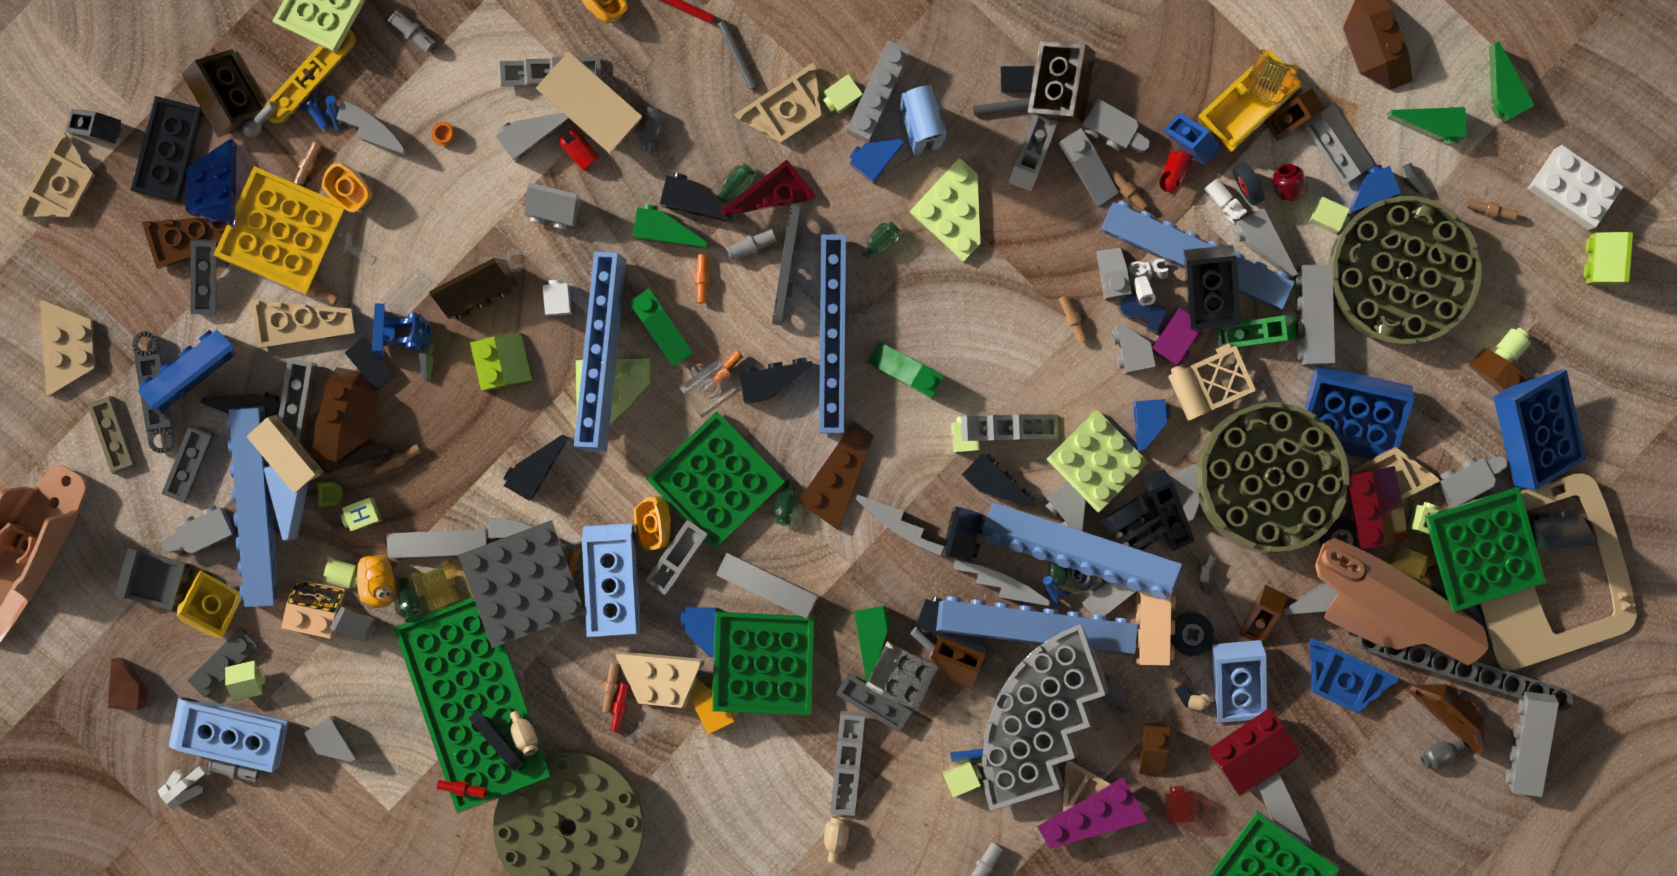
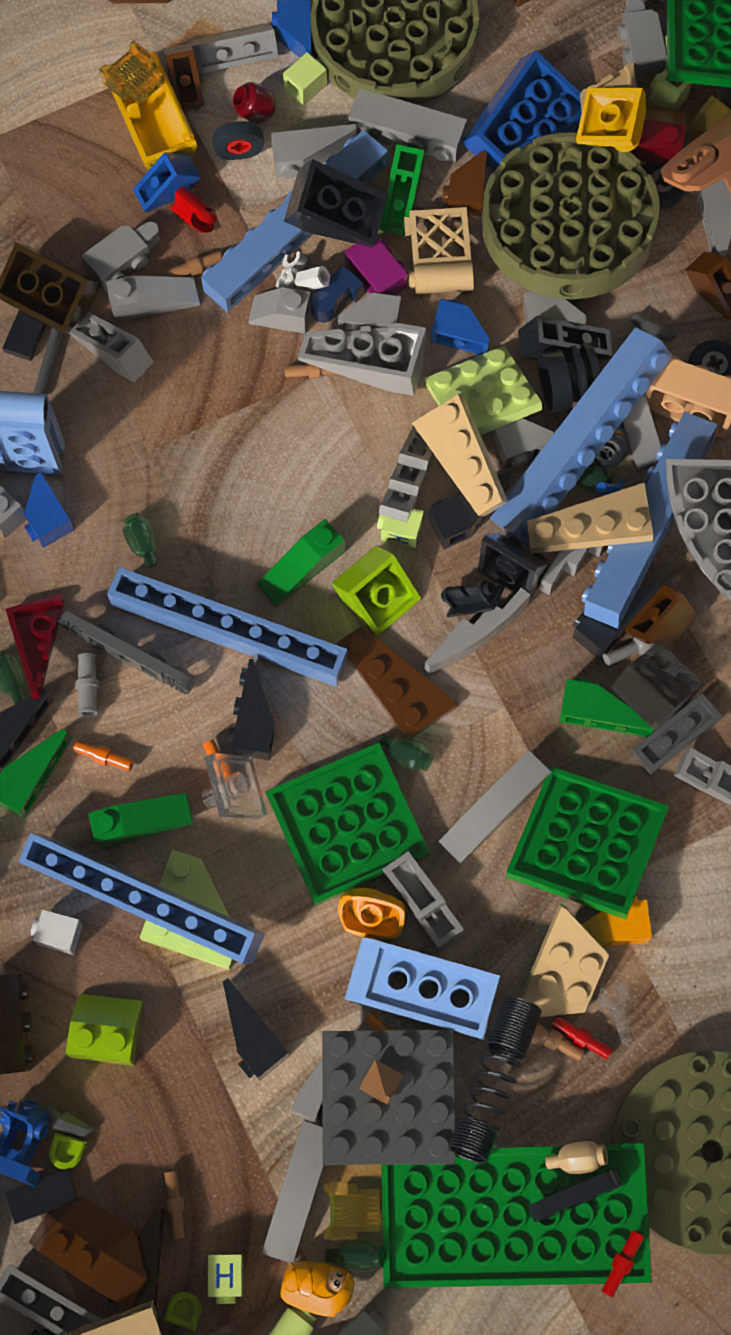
camera: 70 degrees left, 15 degrees down
(407, 368) = (66, 1151): none -> lime tile
(527, 576) = (381, 1082): none -> medium nougat slope
(596, 658) = (511, 1039): none -> black piece
(700, 626) = (518, 901): blue slope -> none
(905, 435) = (376, 590): none -> lime slope
(920, 512) = (472, 599): none -> black hinge
(952, 210) = (140, 453): yellowish green plate -> none
(1011, 587) = (604, 521): none -> tan wing
(1036, 461) = (462, 453): none -> tan wing
(1099, 367) = (377, 356): none -> light grey wedge
(1232, 209) = (243, 175): white bar -> none
(1276, 383) = (467, 186): none -> reddish brown slope
(1362, 484) = (612, 118): none -> yellow slope

